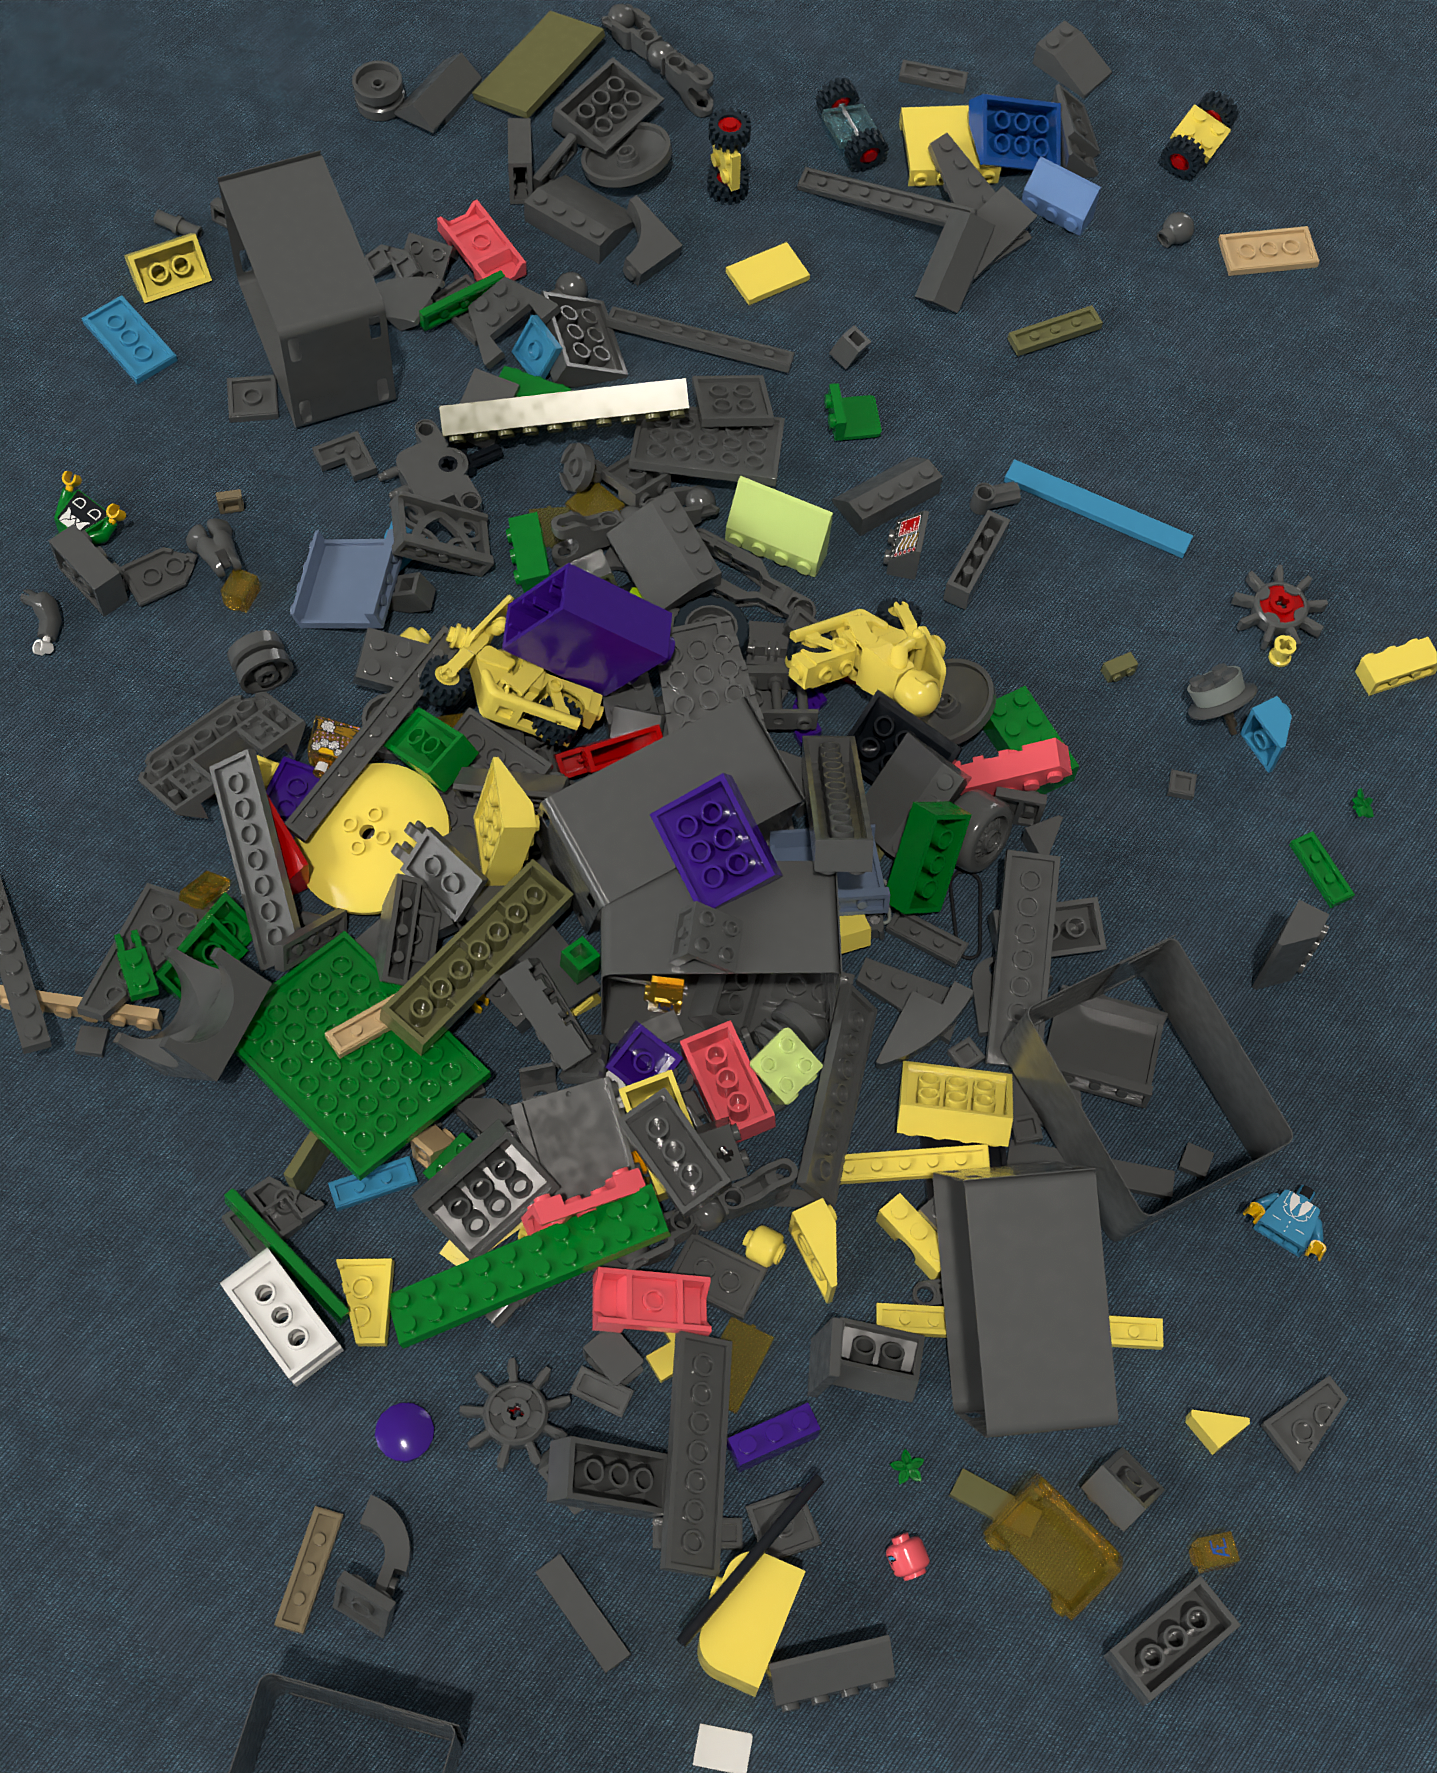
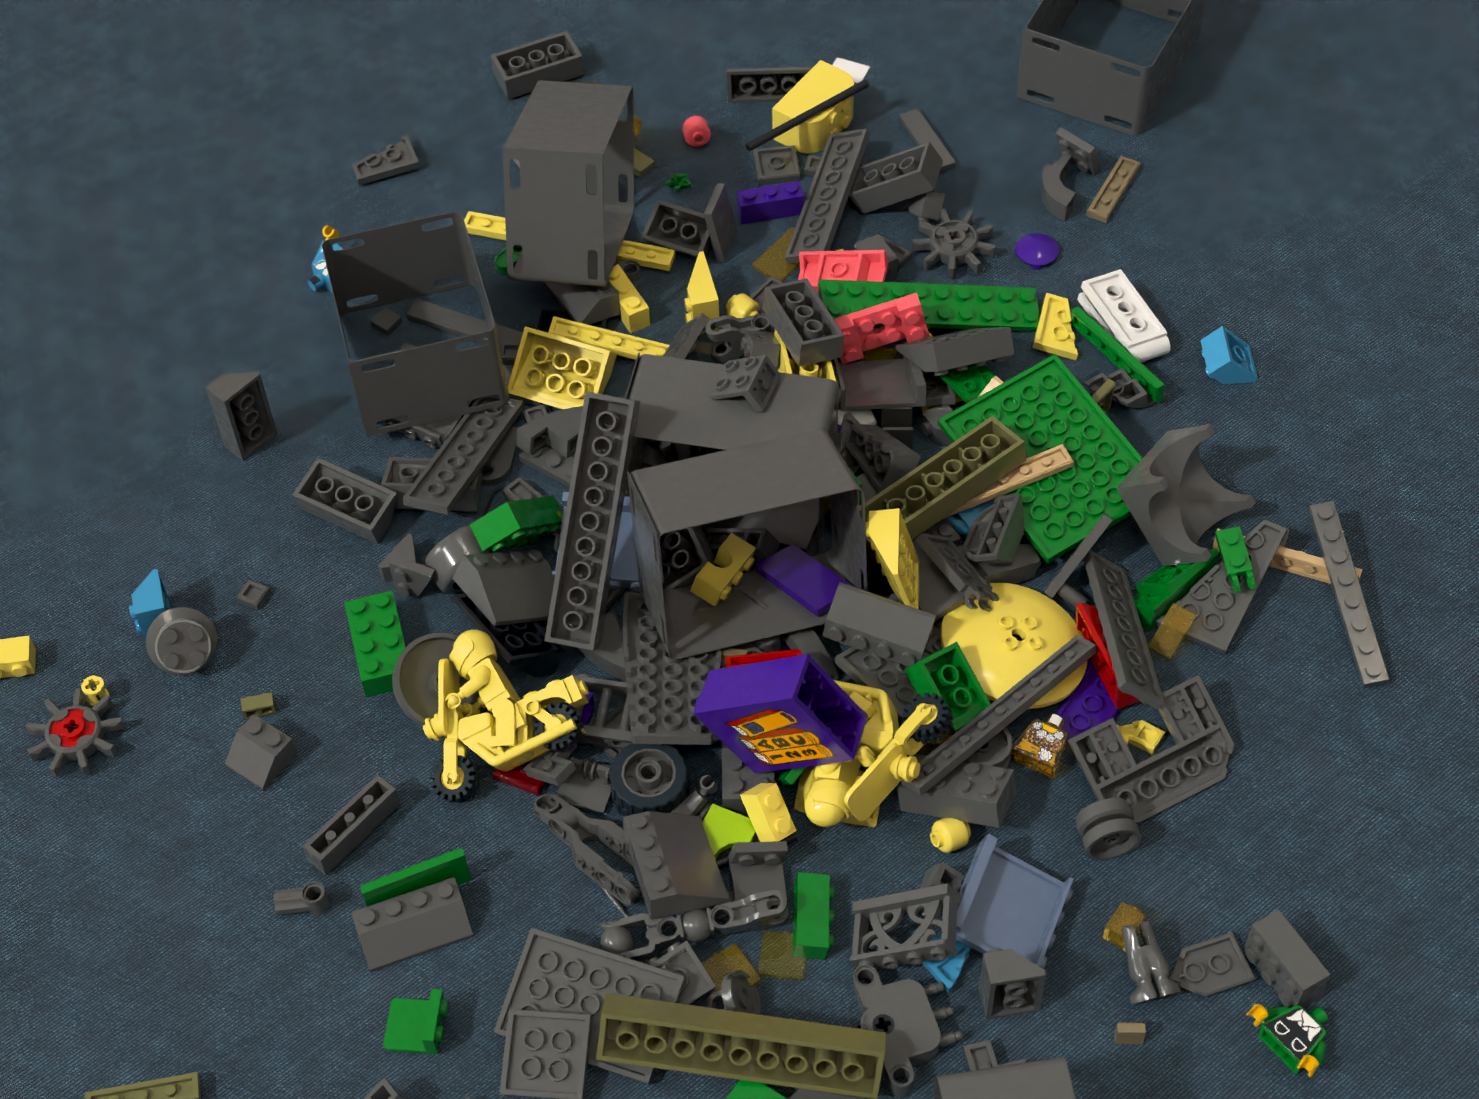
camera: 160 degrees left, 10 degrees down
(49, 619) = (1331, 933): dark grey arm -> none
(145, 1283) = (1228, 358): none -> dark azure slope
(338, 499) = (1010, 984): none -> dark grey slope
(716, 843) = (715, 438): dark purple slope -> none
(779, 527) = (546, 884): yellowish green slope -> none
(877, 523) = (418, 876): none -> green tile
(906, 545) = (415, 843): slope -> none
(1019, 770) = (409, 592): coral wedge -> none
(1093, 622) = (260, 752): none -> dark grey slope
(1099, 509) = (200, 876): dark azure tile -> none
(1131, 882) = (346, 500): none -> dark grey slope
(1214, 1428) = (450, 164): light yellow slope -> none
(1214, 1552) = (487, 105): clear yellow brick -> none
(1321, 869) = (168, 507): green tile -> none
(1362, 805) = (102, 547): green plant -> none

